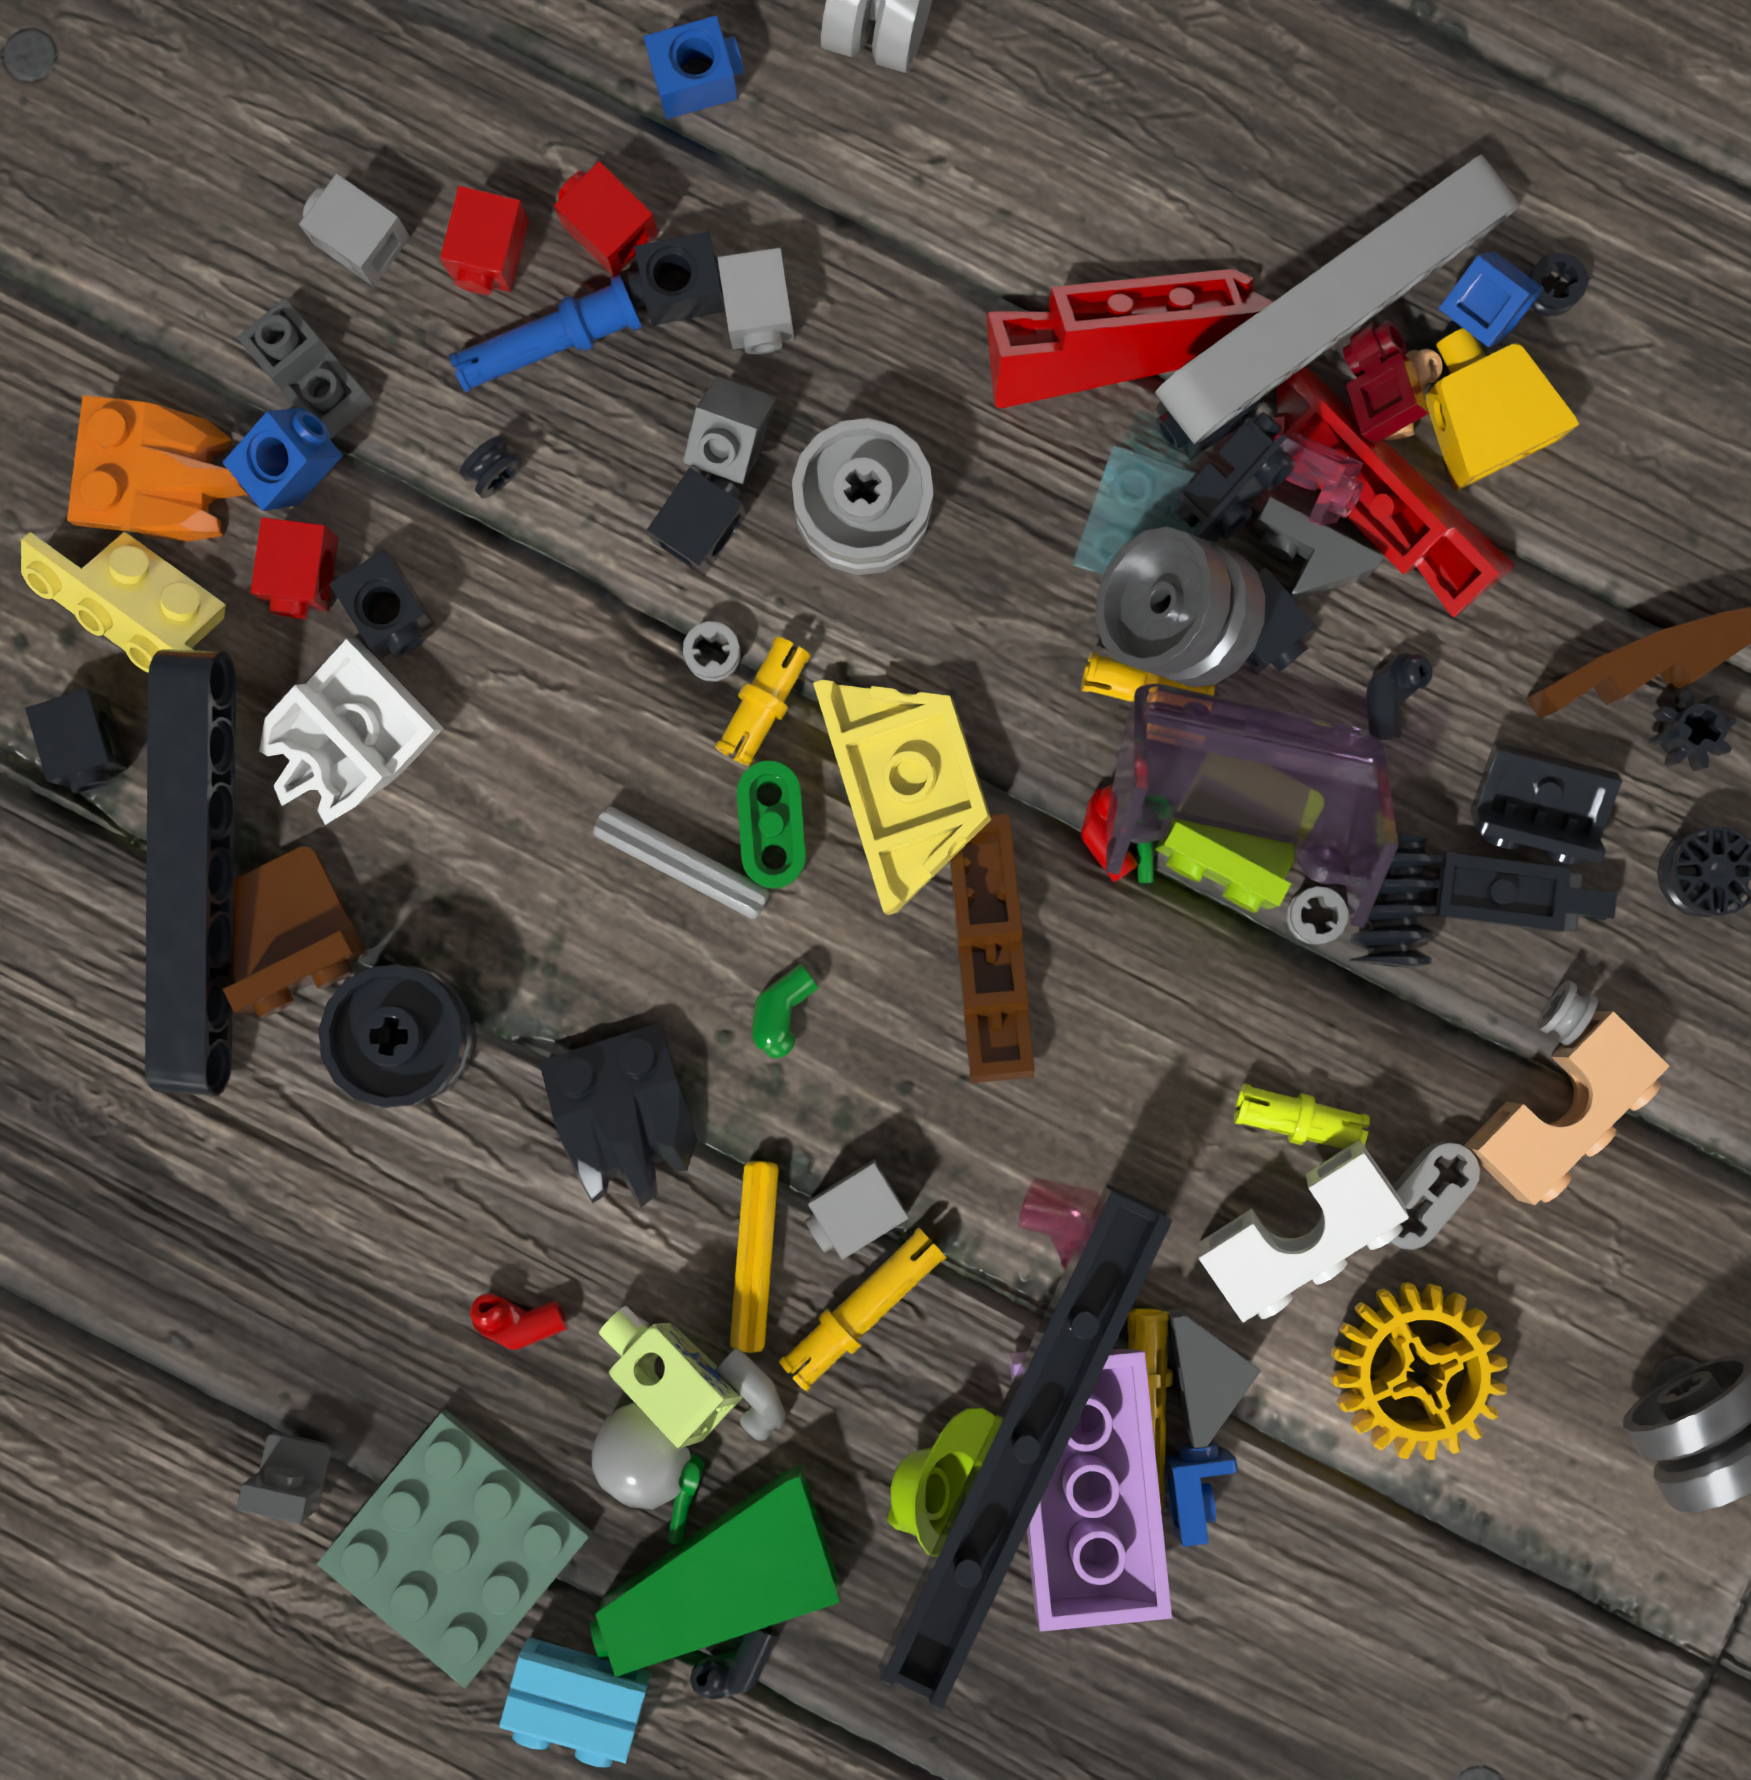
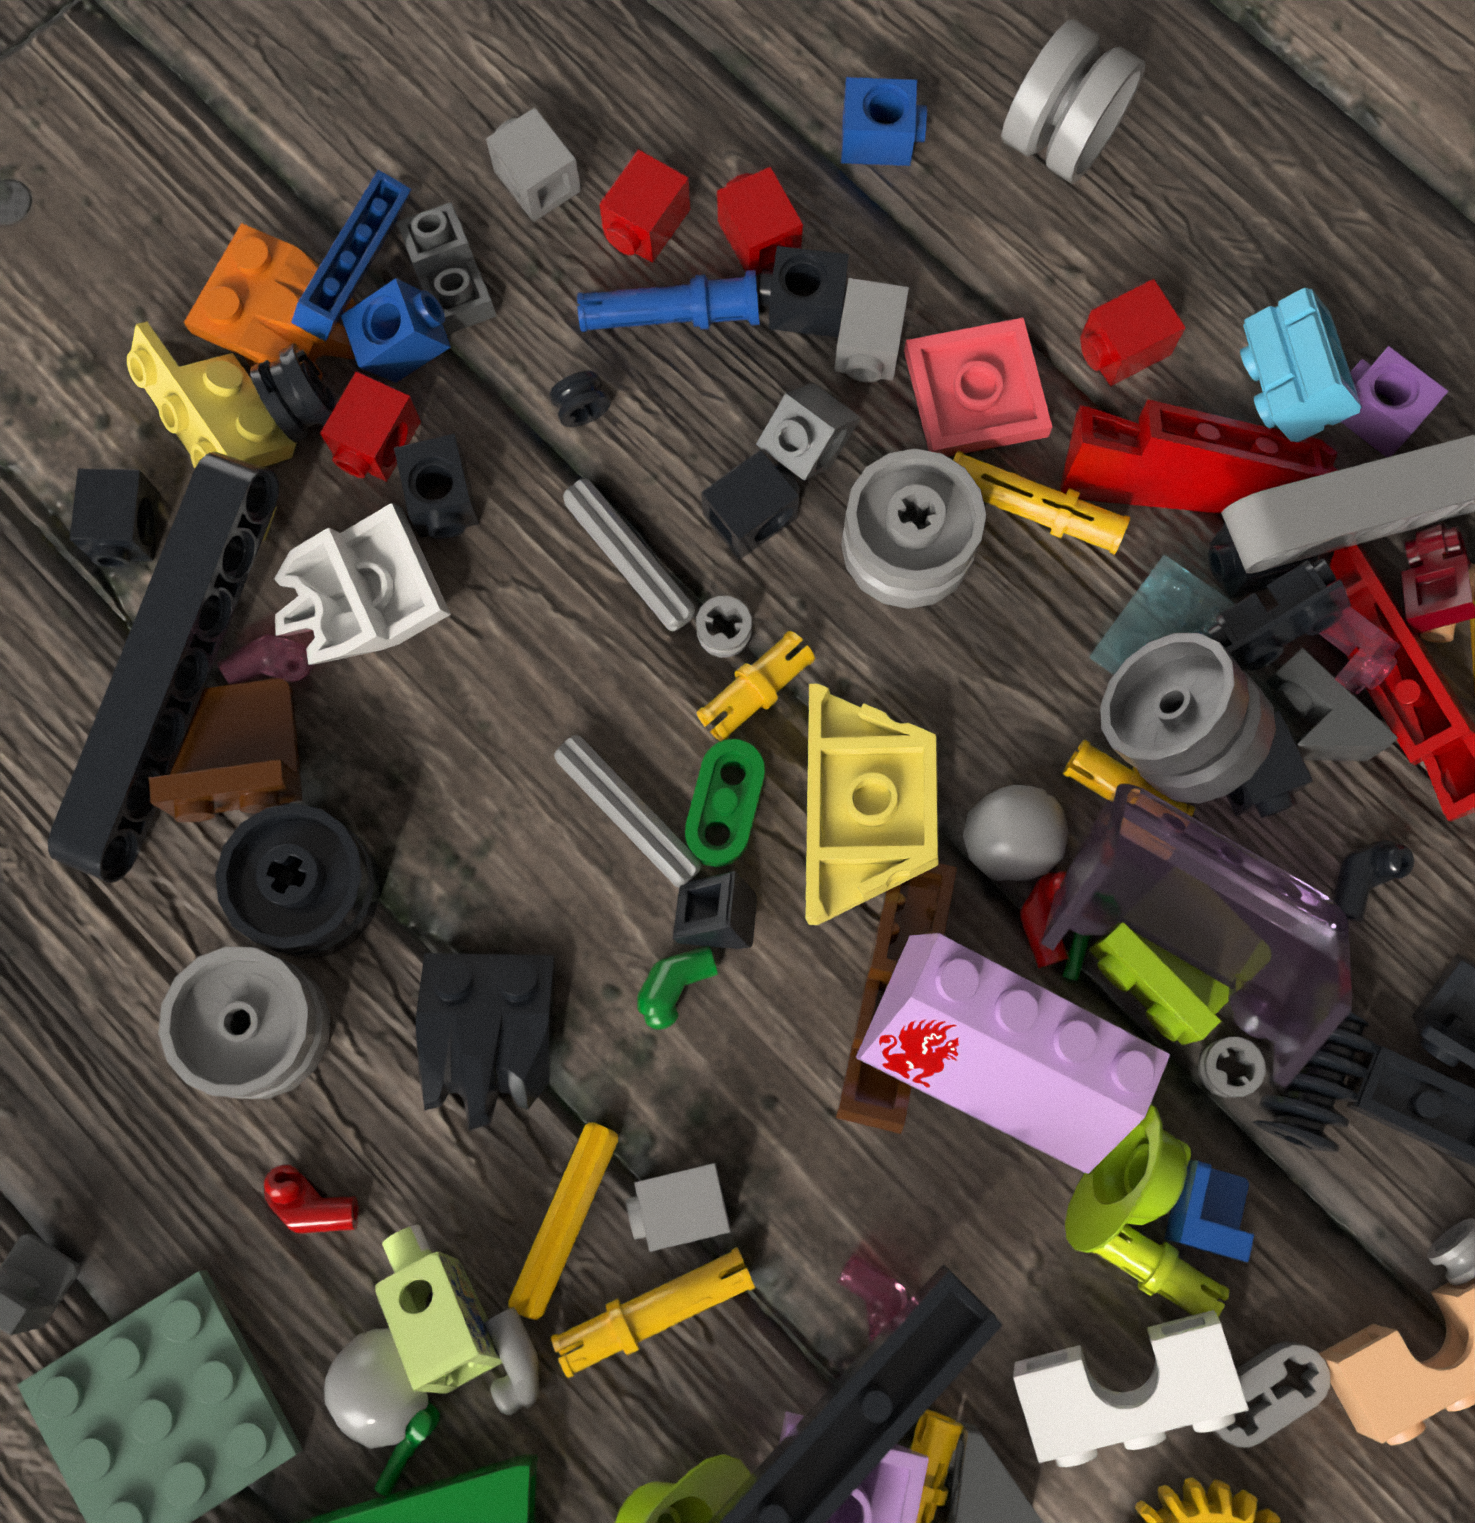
camera: 20 degrees right, 10 degrees down
(206, 557) = (293, 392): none -> black wheel
(208, 393) = (350, 256): none -> blue piece
(281, 827) = (268, 656): none -> clear pink arm
(361, 1191) = (209, 1010): none -> light grey wheel
(594, 609) = (629, 554): none -> light grey axle
(798, 931) = (716, 912): none -> black slope
(881, 325) = (978, 388): none -> coral plate
(1014, 218) = (1131, 333): none -> red brick
(1049, 435) = (1046, 505): none -> yellow pin
(1055, 761) = (1016, 833): none -> light grey hair
(1109, 974) = (1011, 1053): none -> lavender slope
(1189, 205) = (1299, 367): none -> medium azure brick
(1252, 1049) = (1129, 1186): none -> lime piece
(1309, 194) = (1408, 390): none -> medium lavender brick
(1333, 1053) = (1211, 1213): none -> blue panel

